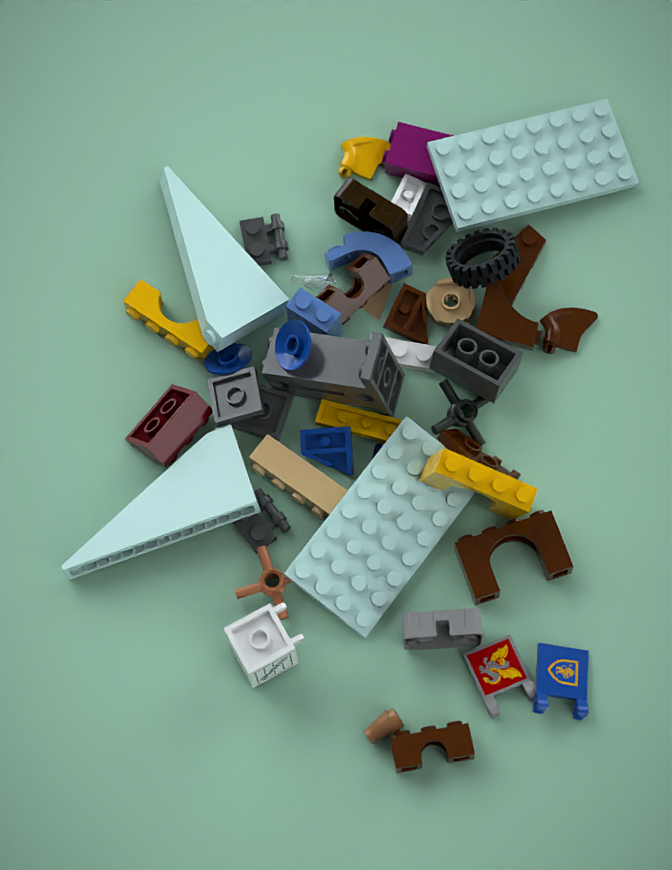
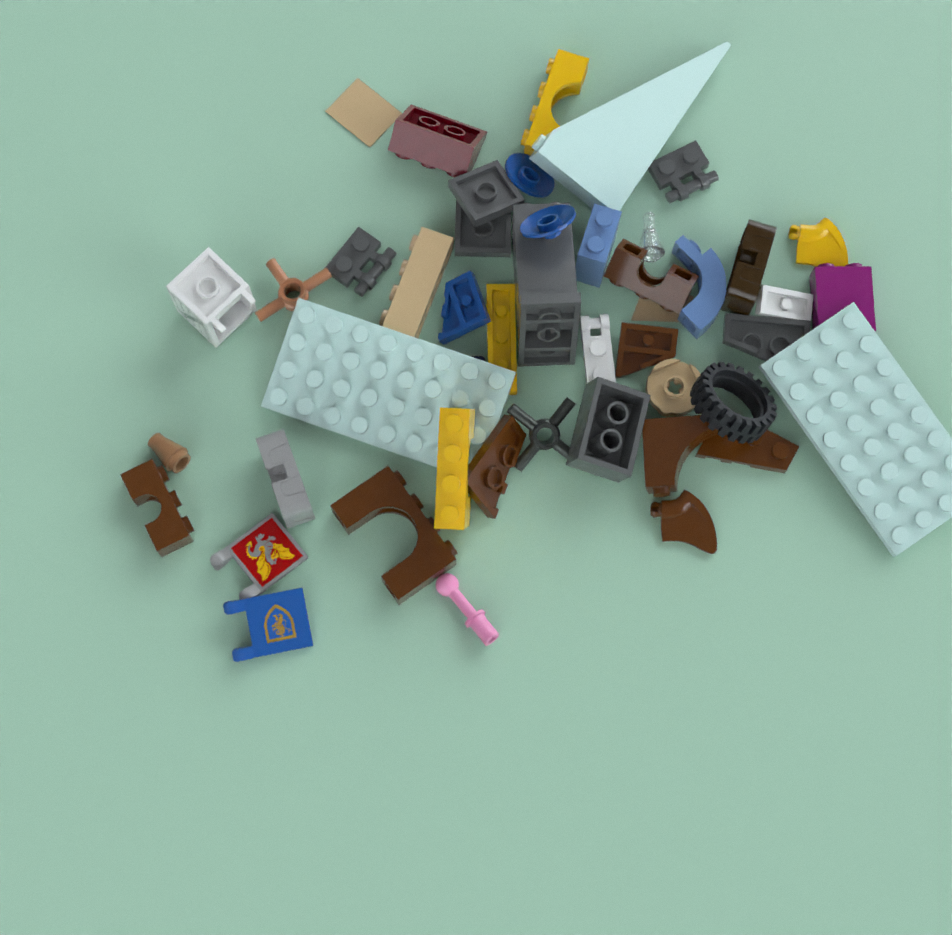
camera: 65 degrees right, 5 degrees up
(117, 481) = (363, 112): none -> tan sticker
(191, 497) = (363, 186): light aqua slope -> none
(606, 511) = (448, 586): none -> bright pink pin

